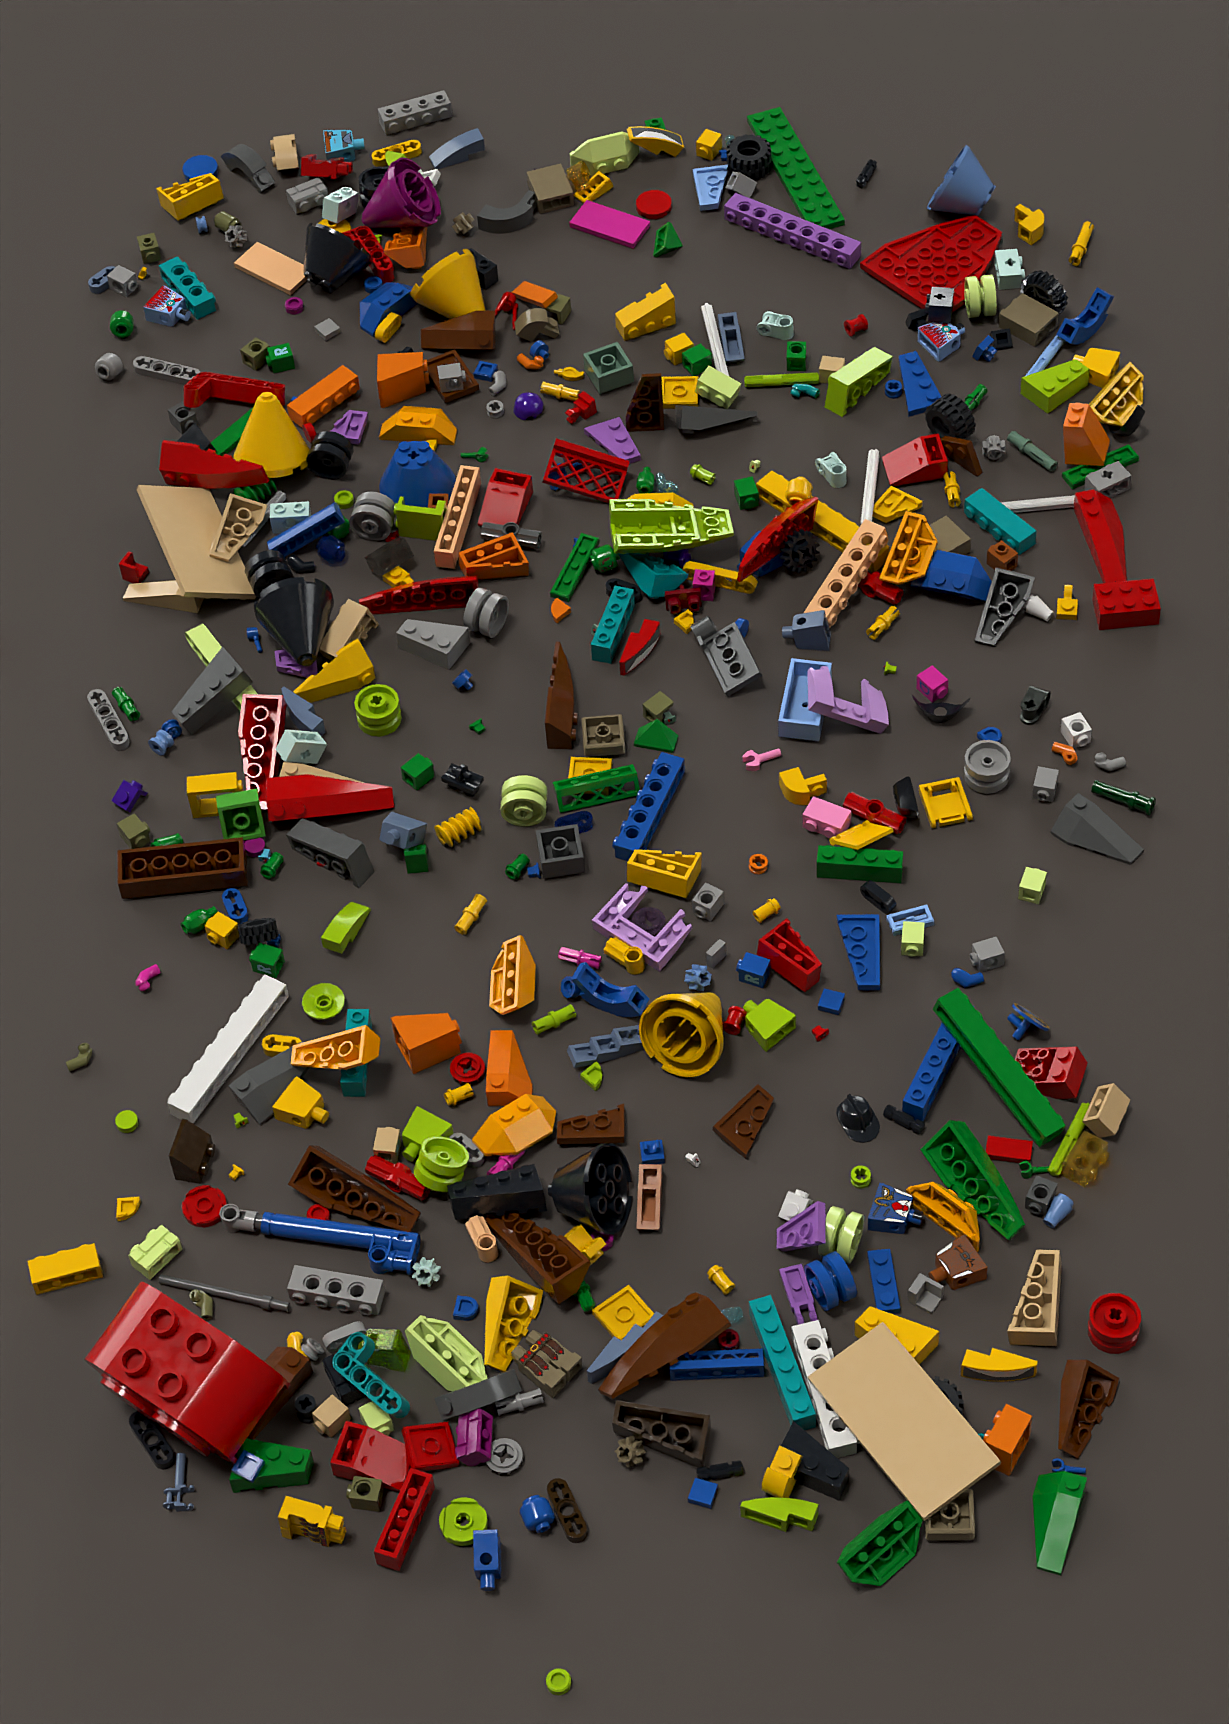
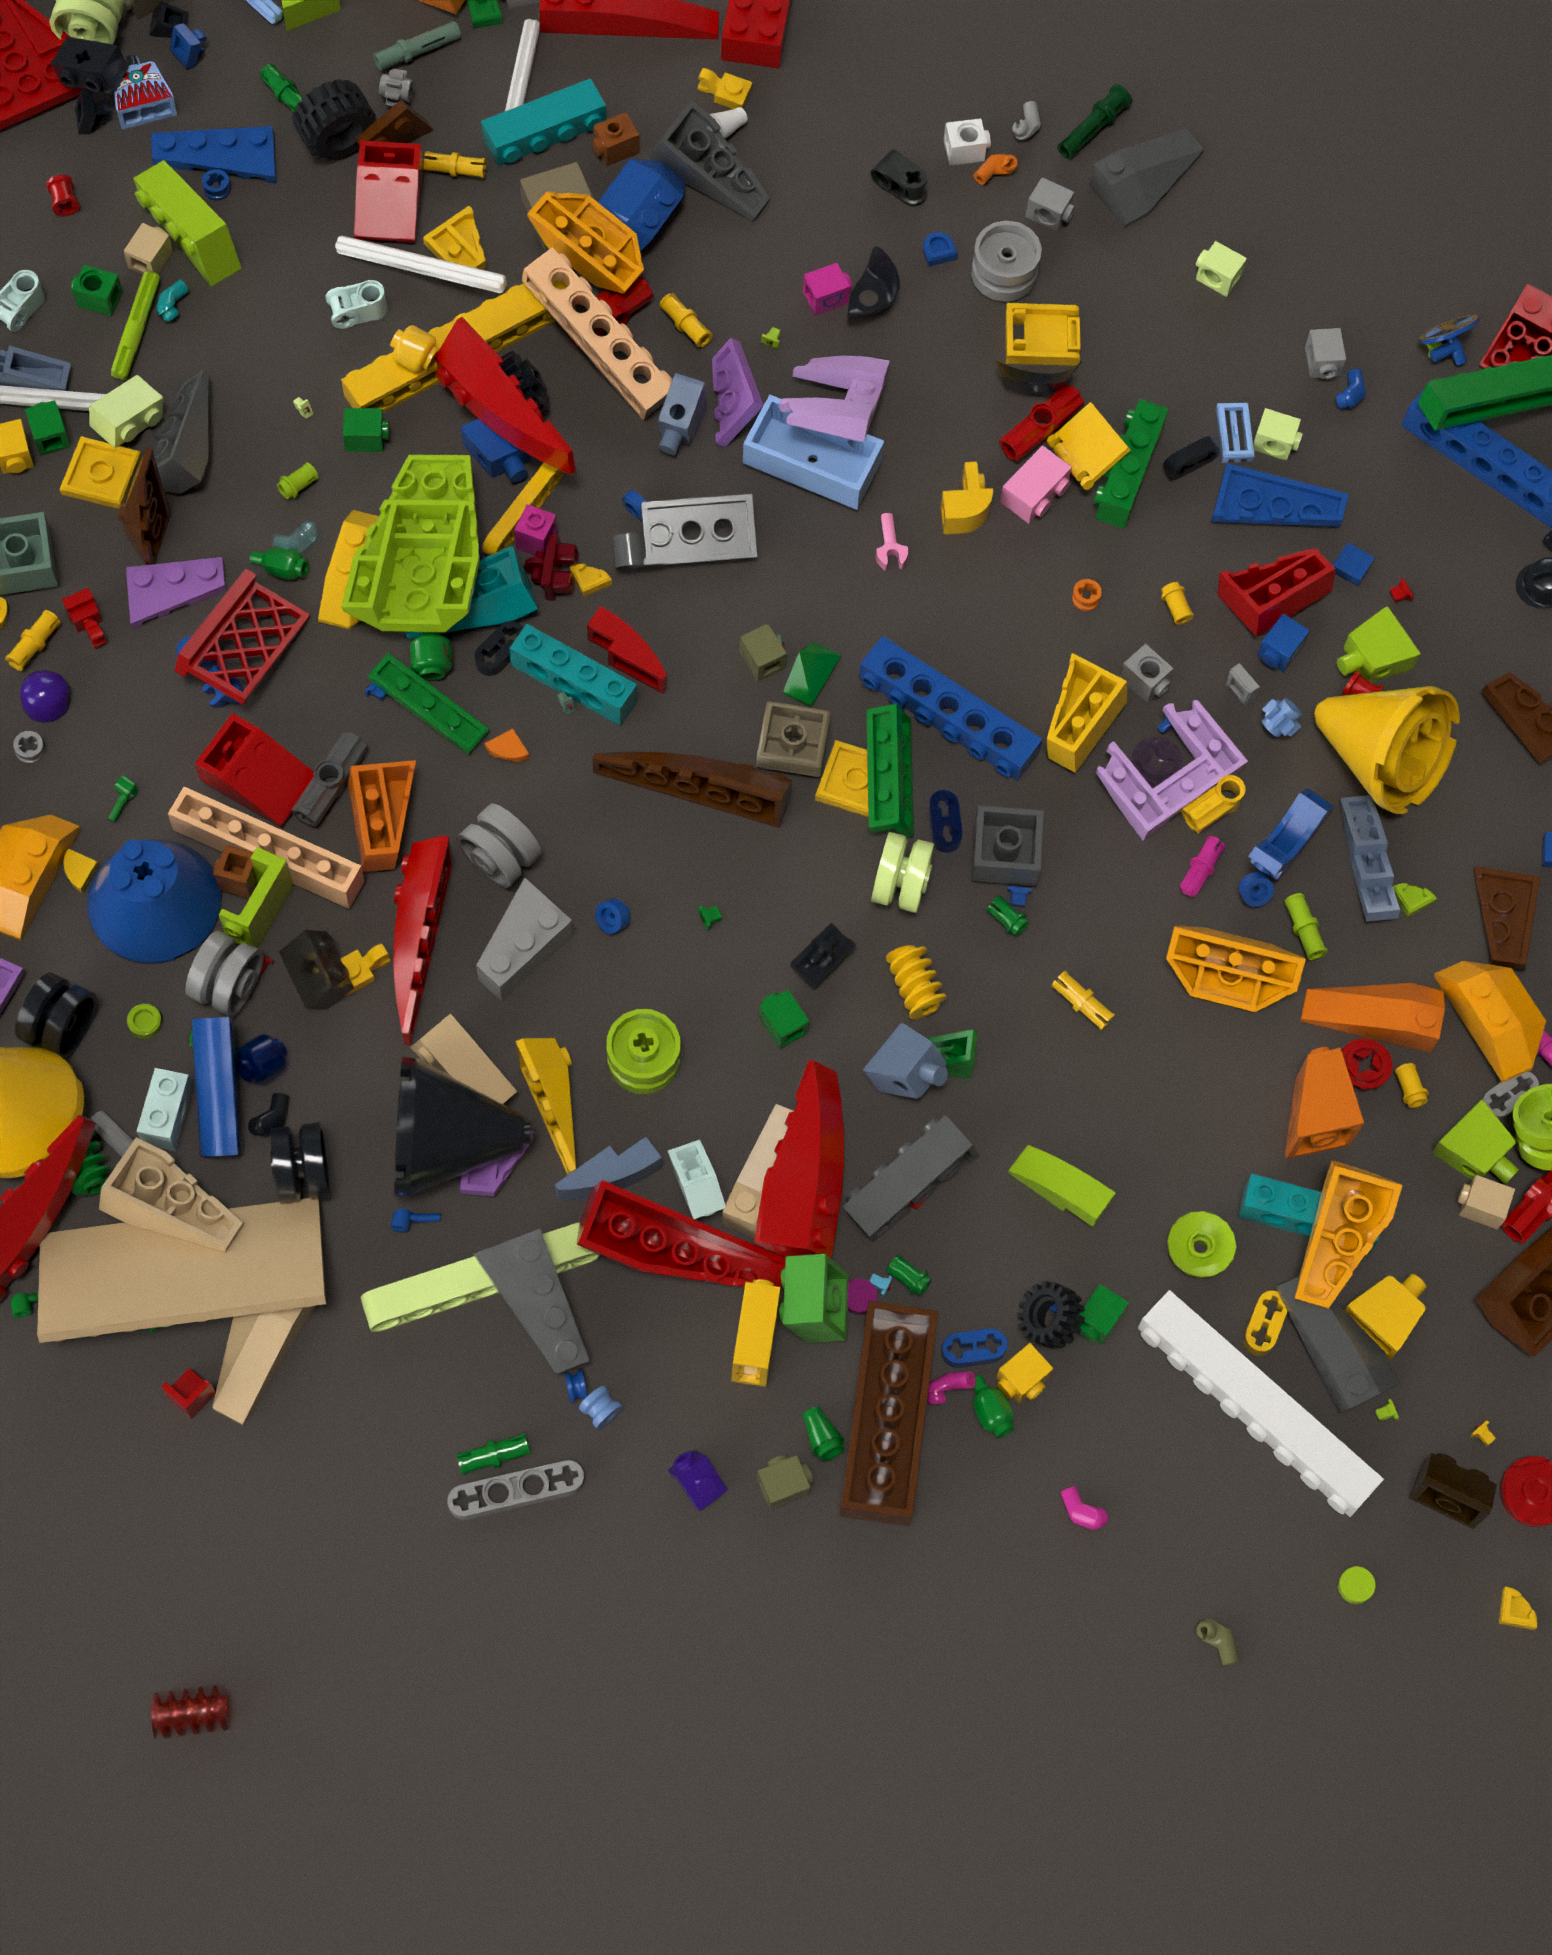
camera: 85 degrees left, 15 degrees up
(206, 893) = (948, 1382): none -> dark pink arm
(841, 653) = (736, 391): none -> medium lavender wing

